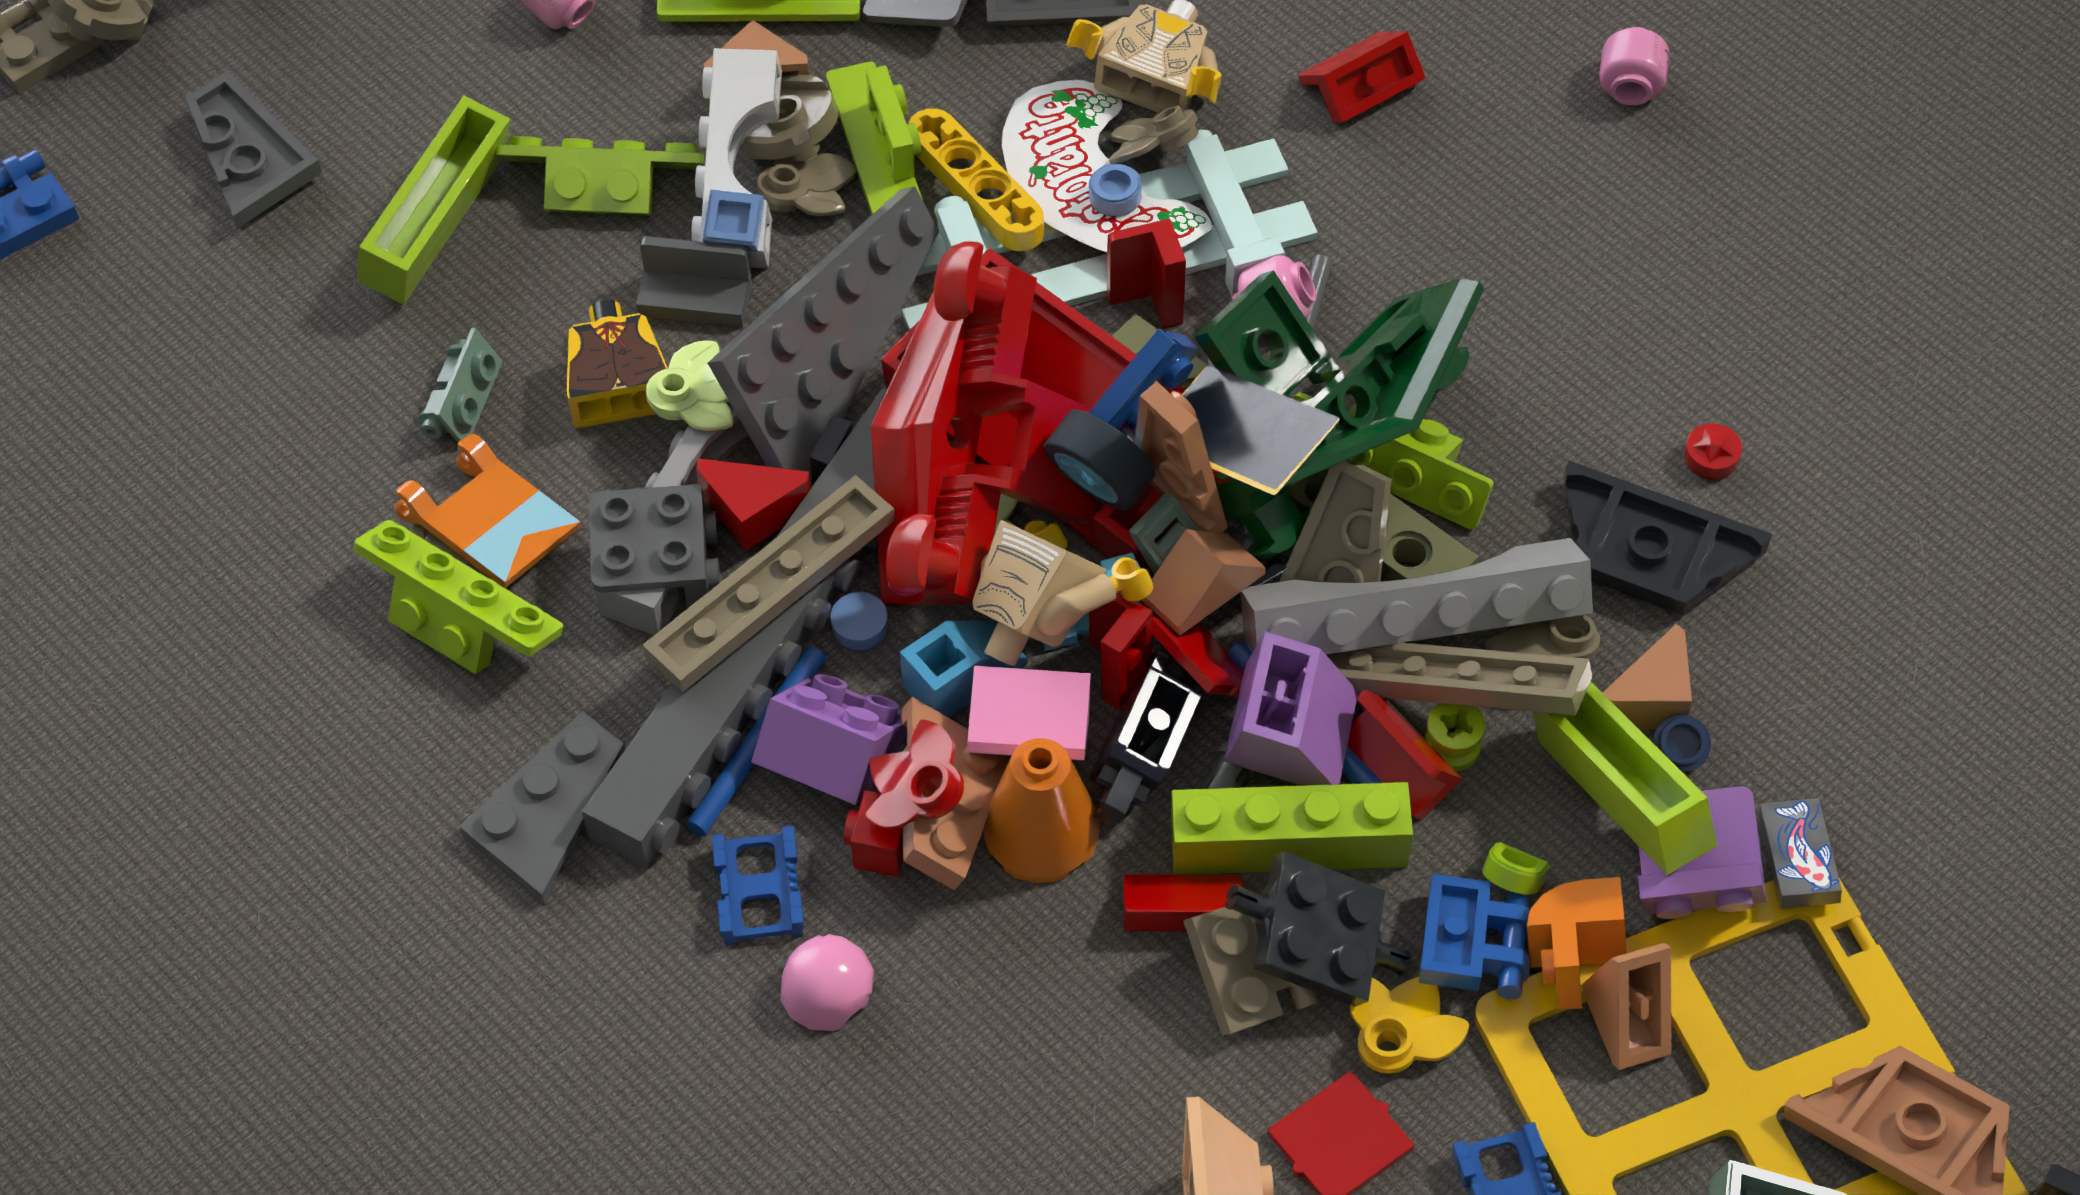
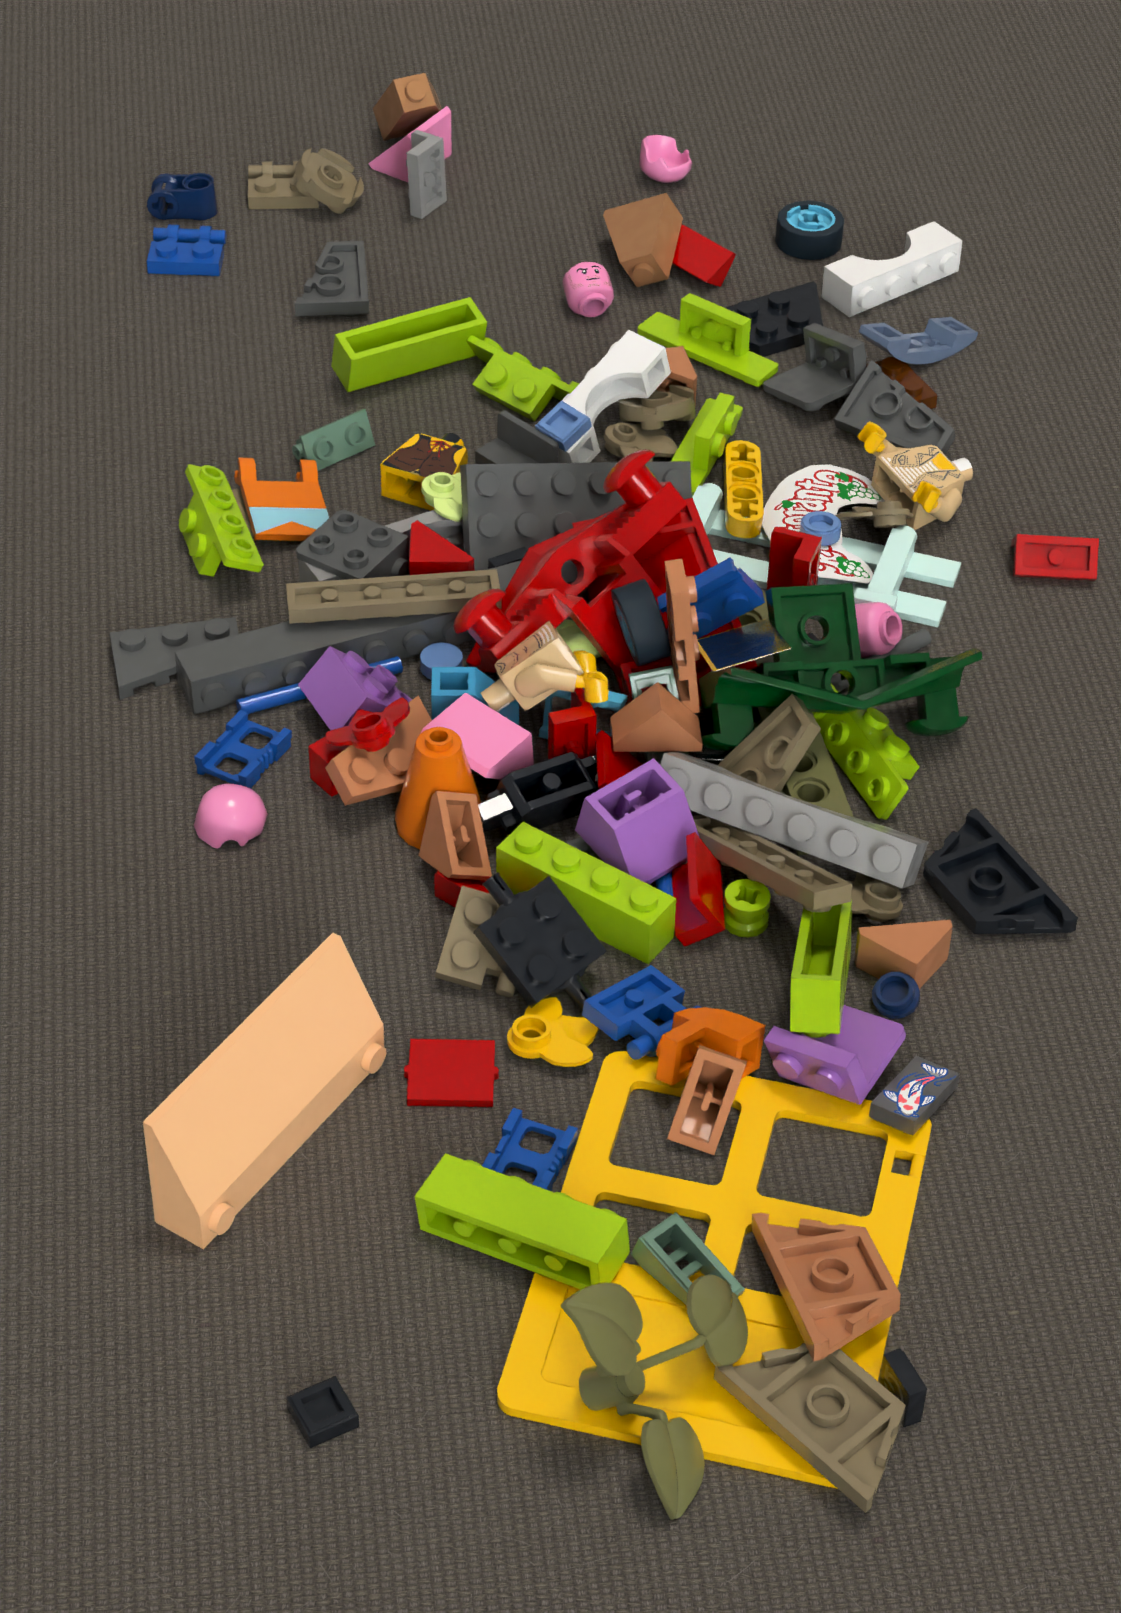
camera: 35 degrees right, 15 degrees down
(1114, 859) = (455, 837): none -> nougat slope
(1515, 869) = (709, 993): lime tile -> none
(1713, 451) = (1089, 861): red tile -> none

